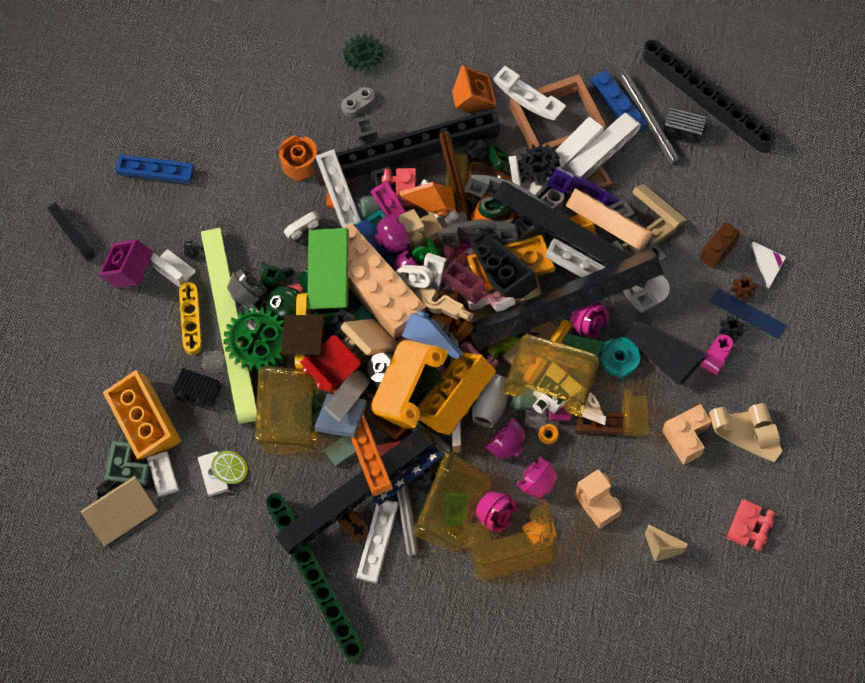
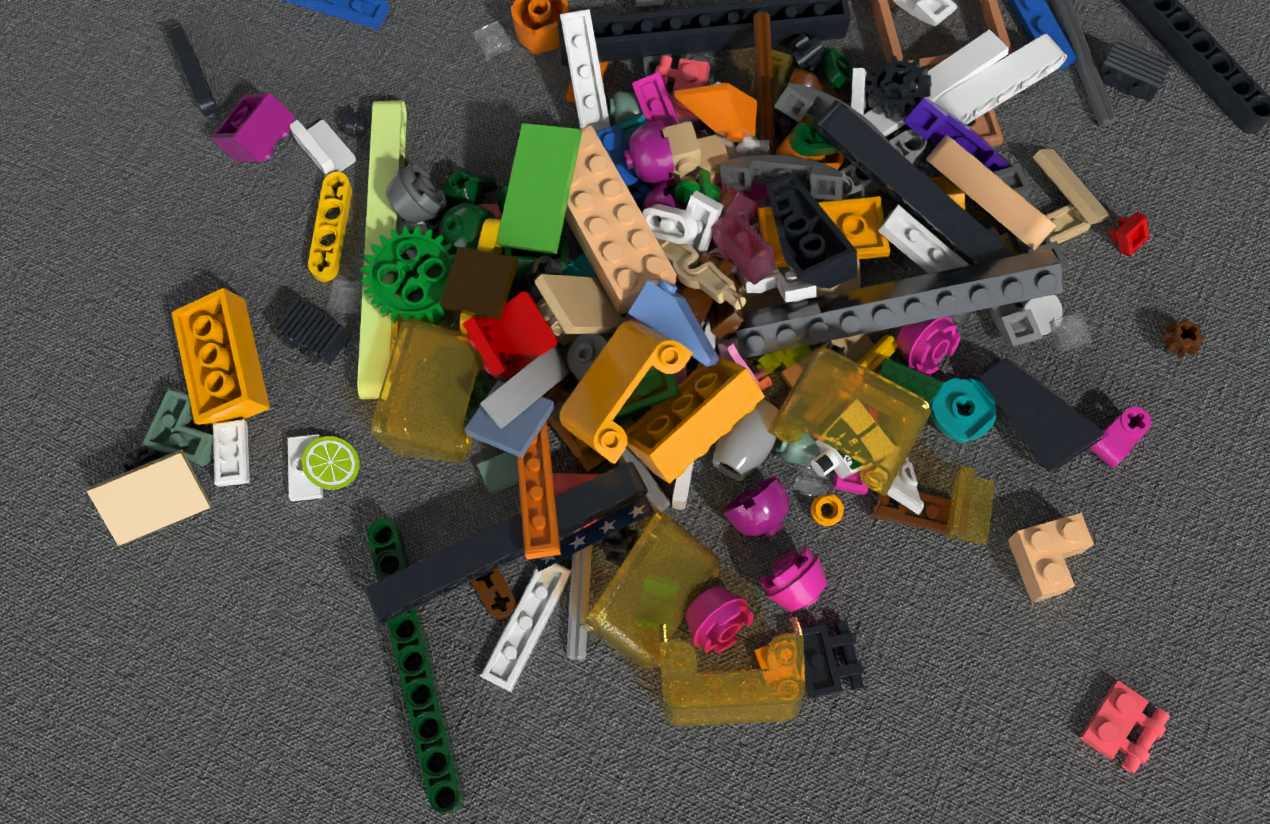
camera: 15 degrees right, 5 degrees up
(268, 177) = (492, 40): none -> clear plate
(297, 228) = (535, 113): white plate -> none
(565, 530) = (821, 672): none -> black plate
(596, 500) = (883, 635): light nougat brick -> none
(662, 544) = (974, 729): tan slope -> none
(676, 297) = (1070, 331): none -> clear plate
(701, 229) = (1131, 233): none -> red tile
(719, 245) = (1156, 263): reddish brown brick -> none
(735, 324) = (1158, 392): black gear -> none
(748, 313) = (1180, 380): dark blue sticker -> none
(749, 430) = (1151, 570): tan panel -> none
(768, 262) = (1227, 304): white tile -> none

